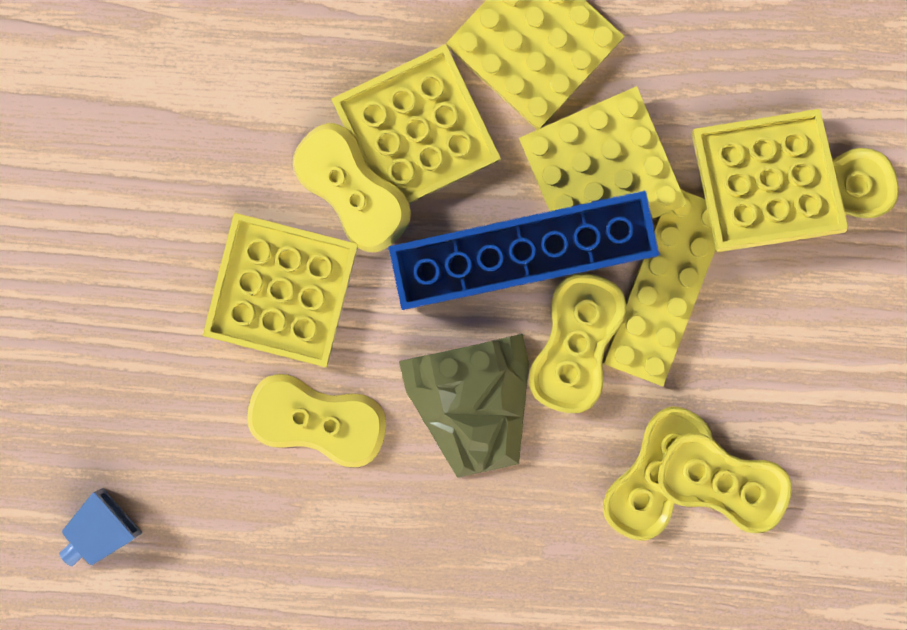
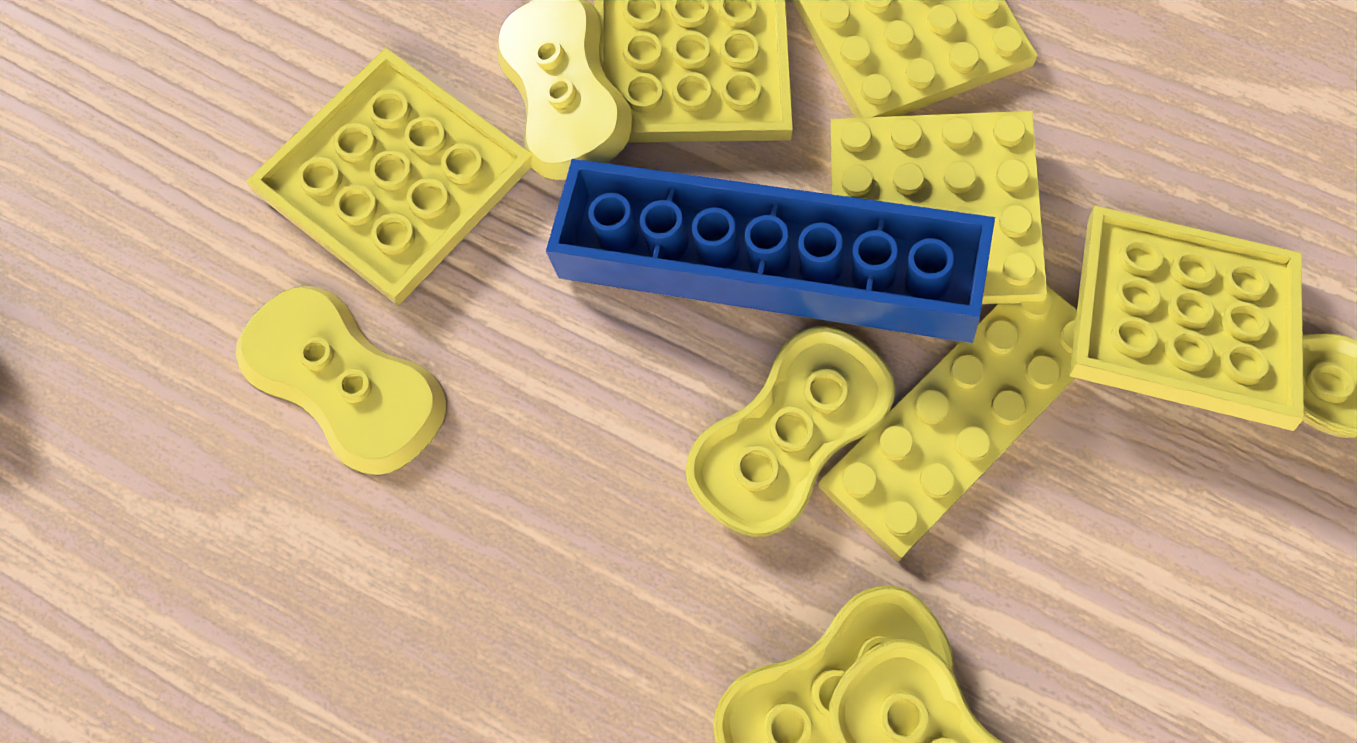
camera: 20 degrees right, 20 degrees down
(472, 402) = (589, 448): olive wedge -> none

